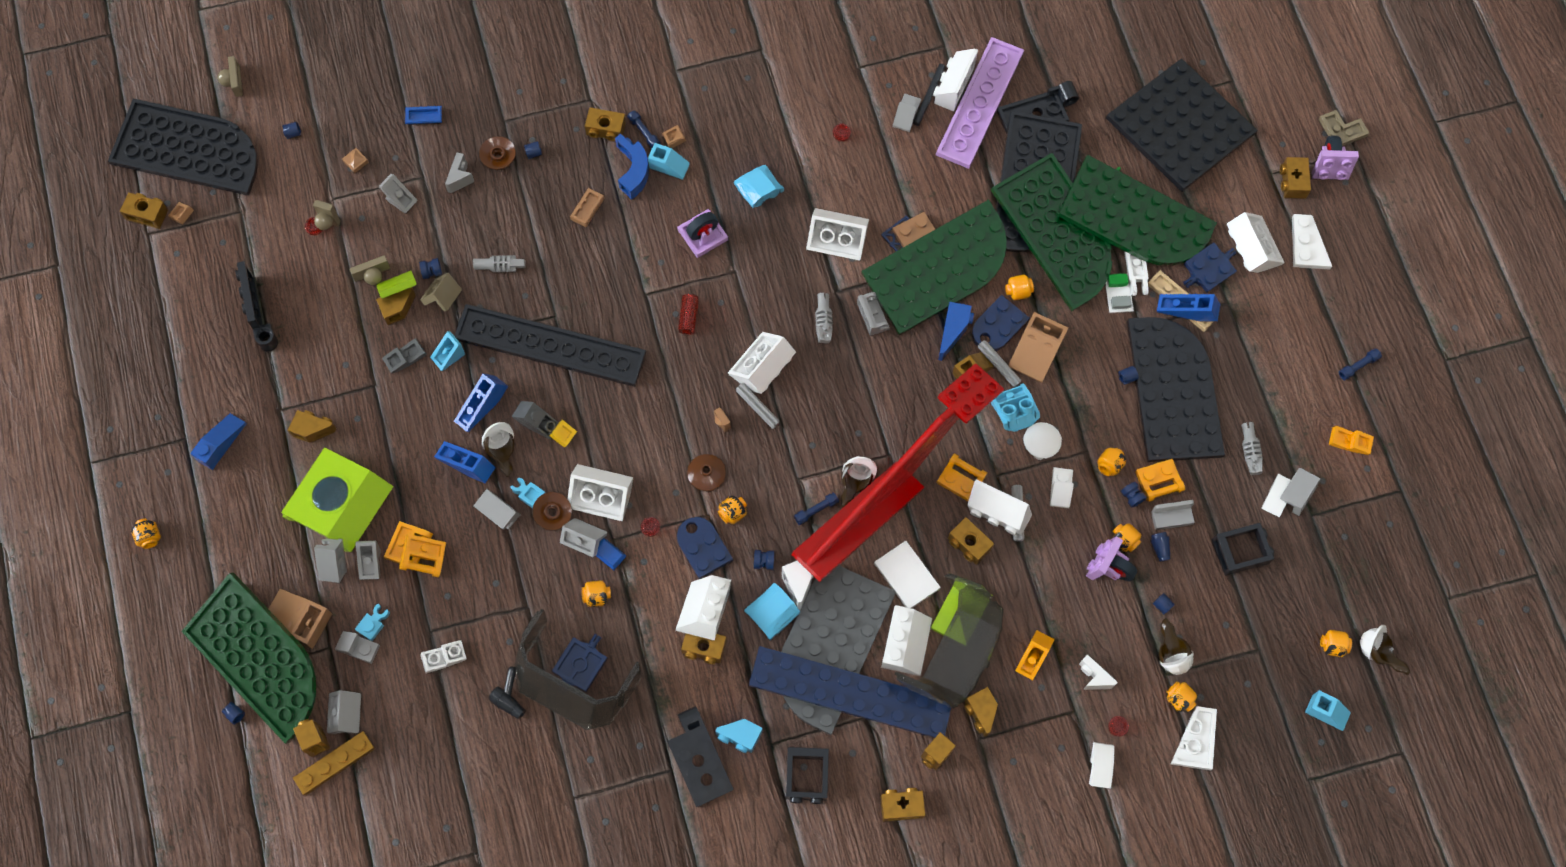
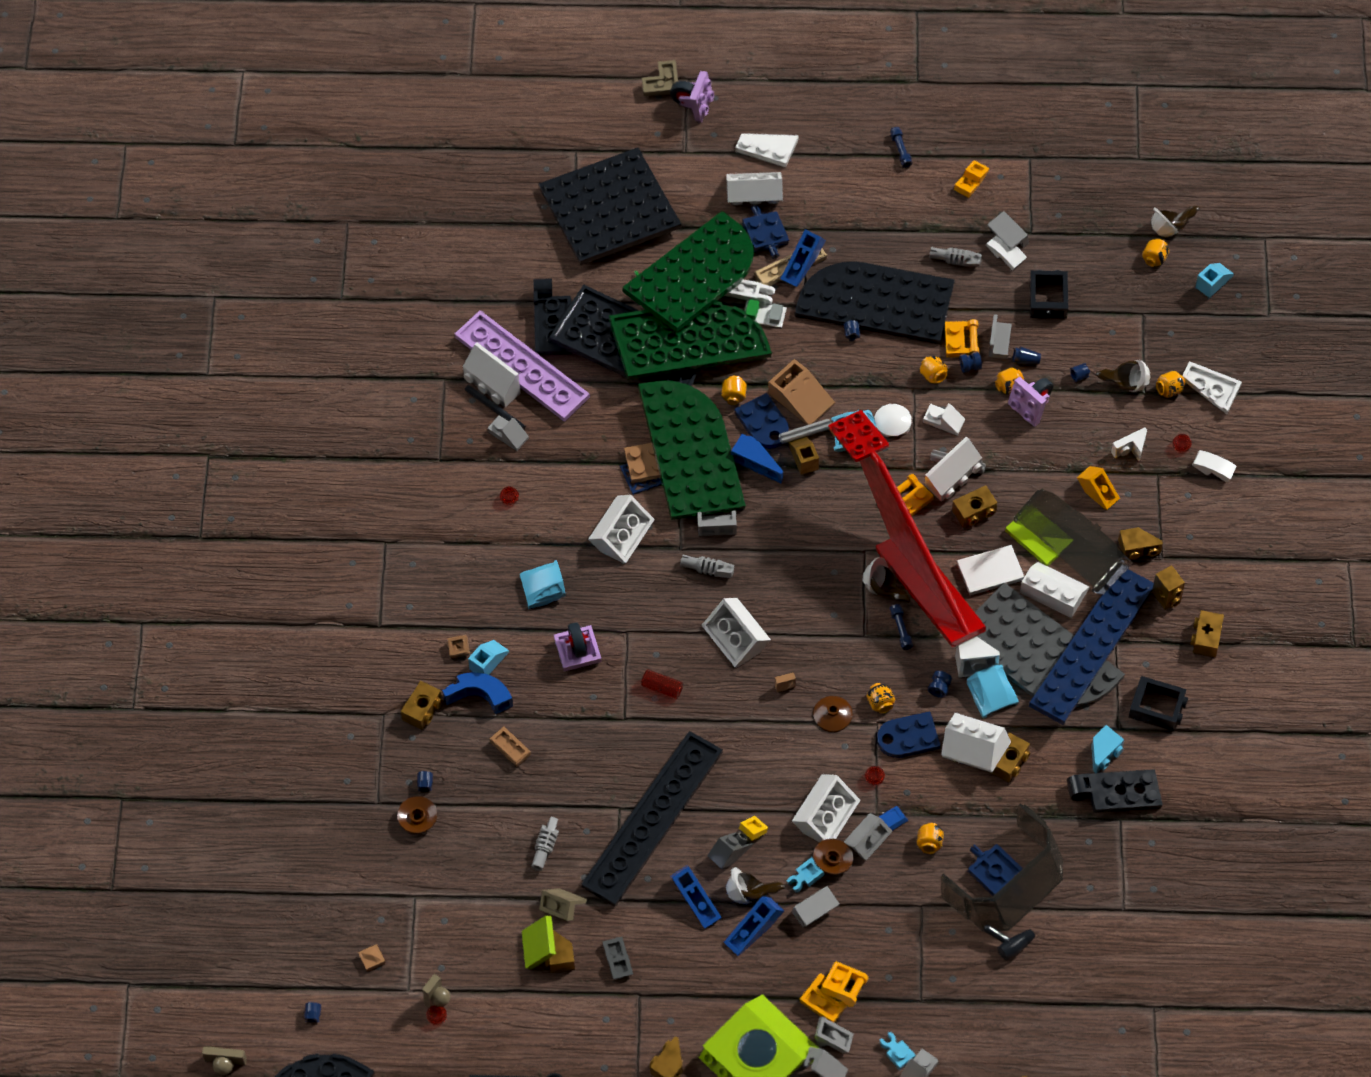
camera: 70 degrees left, 10 degrees down
(370, 270) = (512, 967): dark tan tile -> none
(397, 193) = (431, 922): light grey slope -> none
(423, 115) = (342, 878): blue tile -> none
(426, 270) = (528, 909): dark blue wheel -> none
(443, 657) = (951, 993): white slope -> none
(447, 351) = (628, 913): medium azure slope -> none
(458, 176) = (429, 860): light grey slope -> none
(635, 119) = (455, 668): dark blue bar -> none
(757, 405) = (779, 649): light grey axle -> none
(1295, 177) = (699, 133): pearl gold brick -> none

